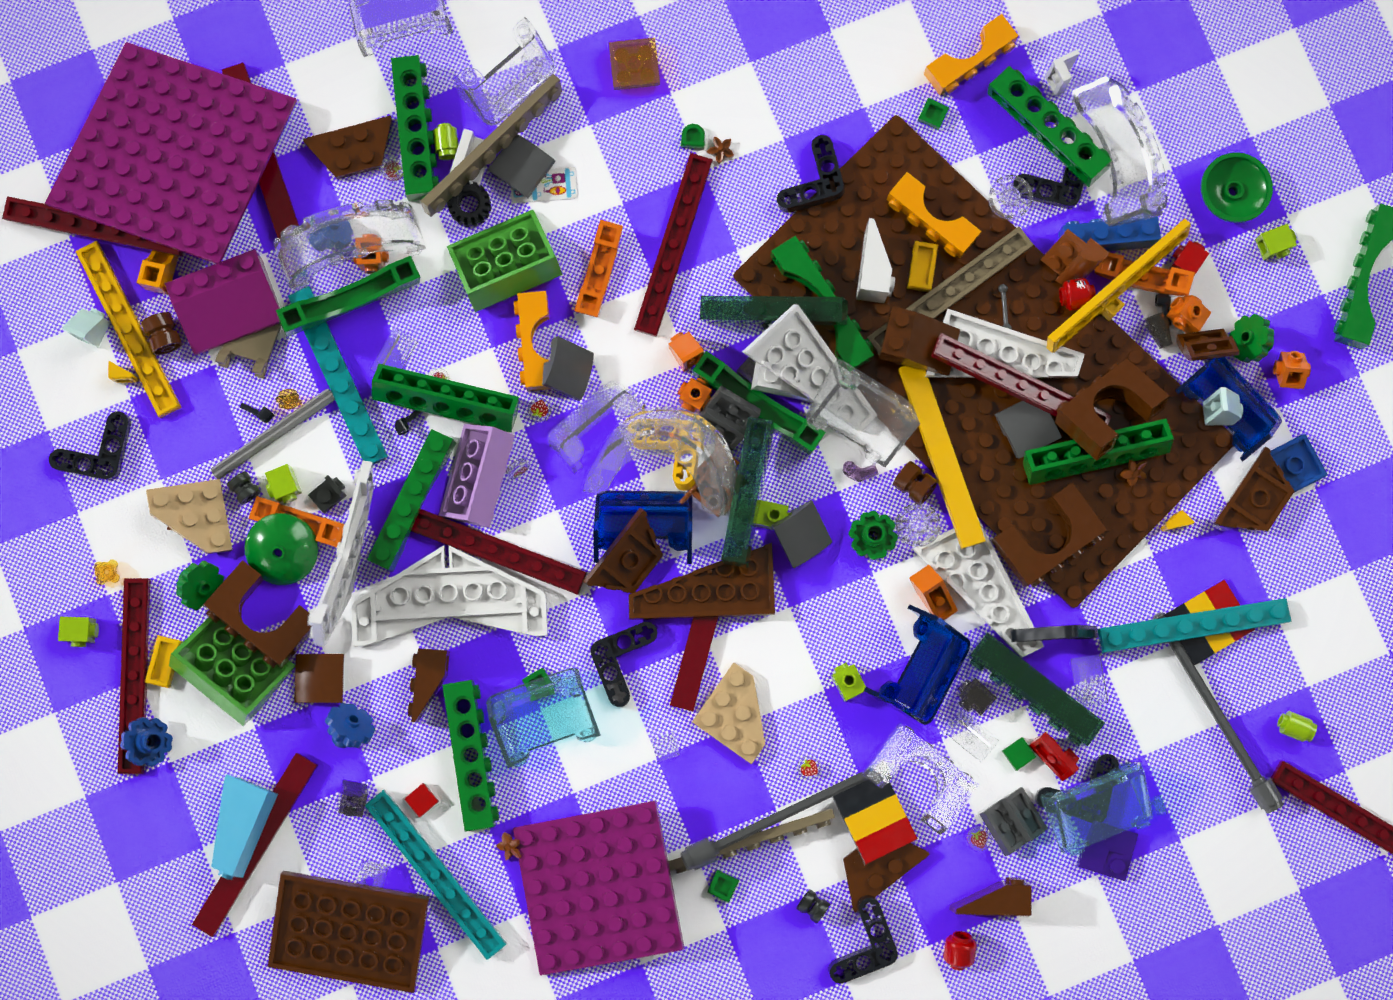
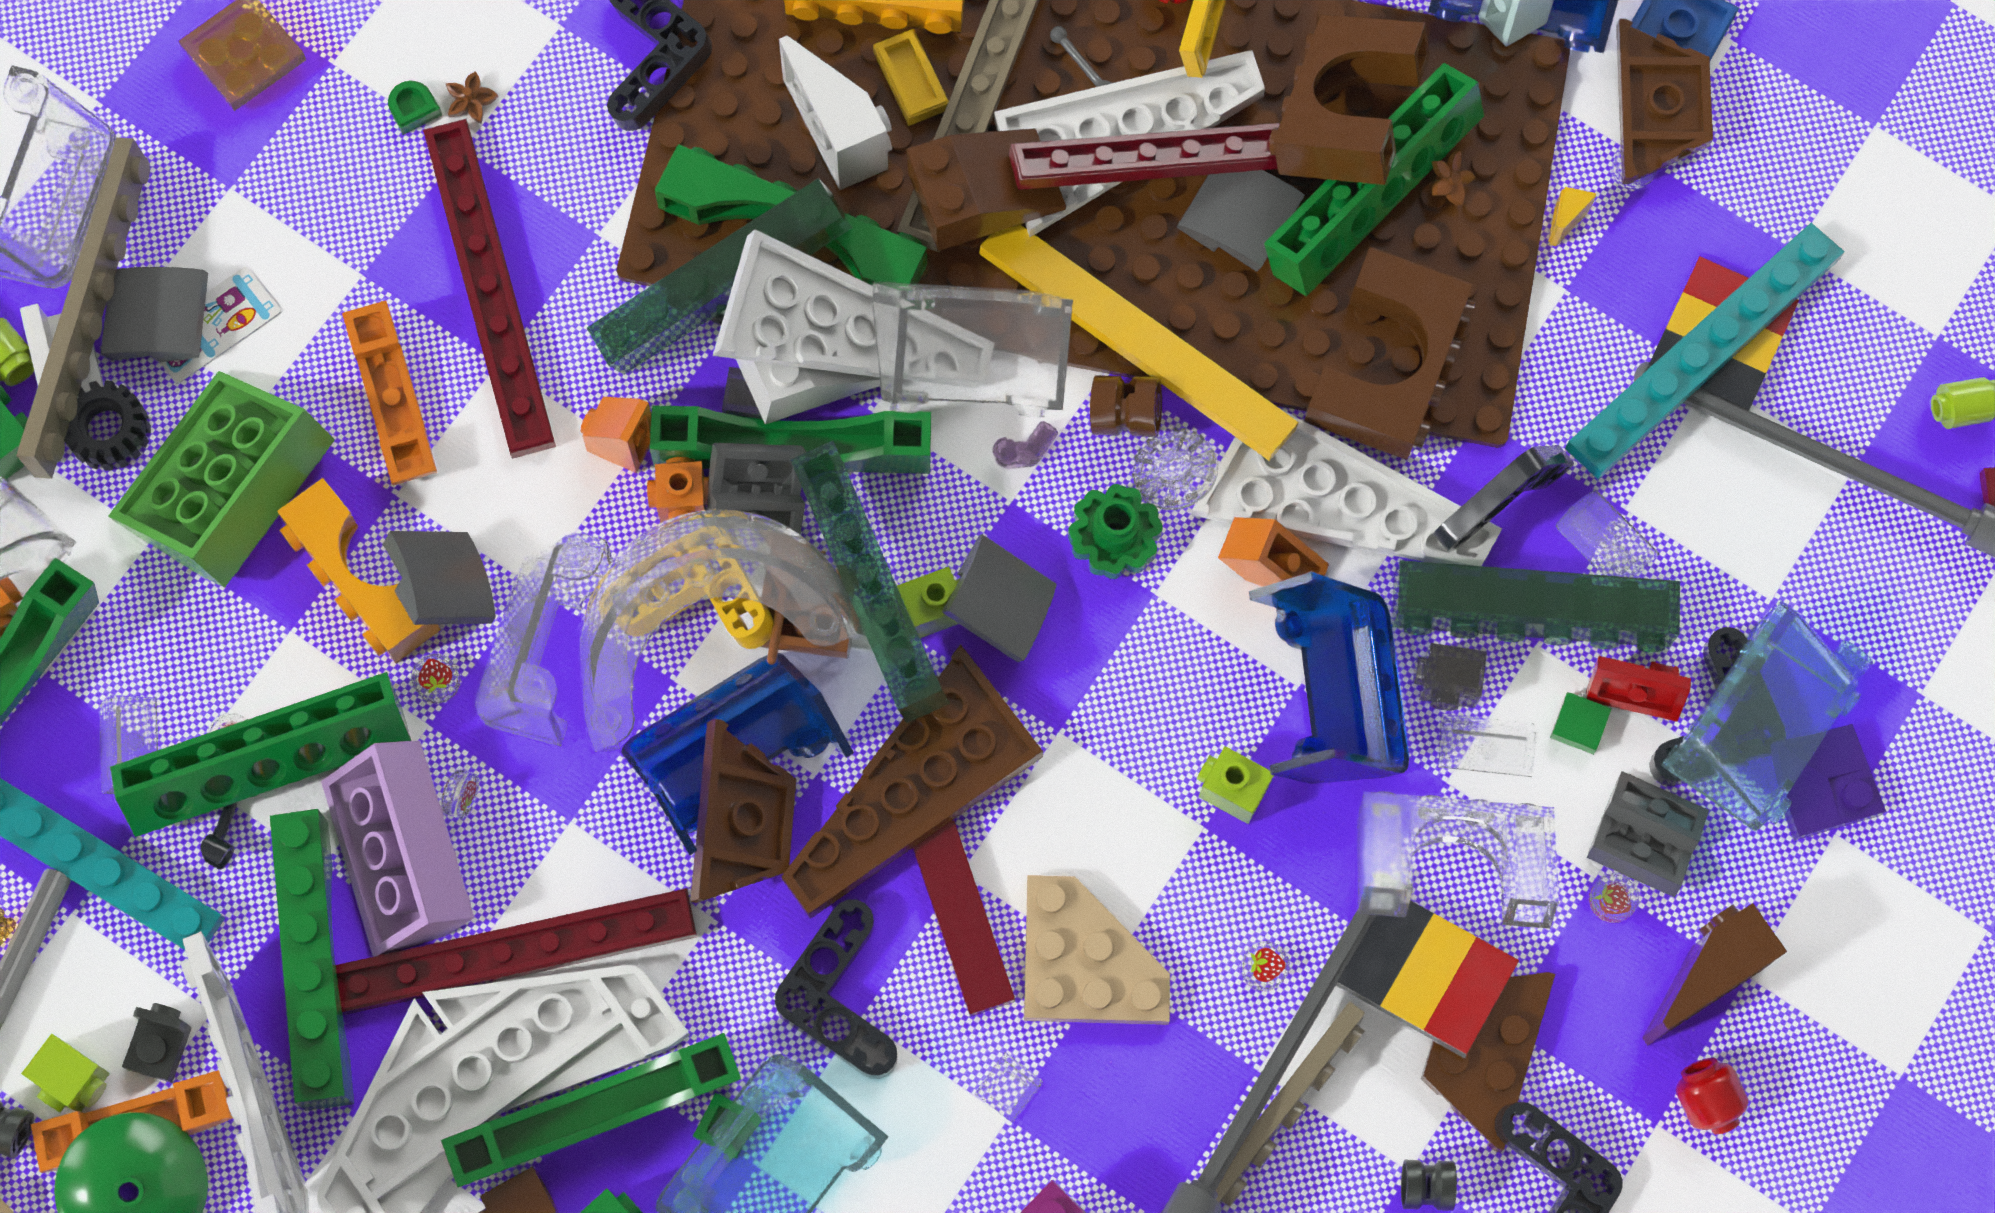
camera: 35 degrees left, 10 degrees down
(483, 641) = (590, 1110): none -> green arch

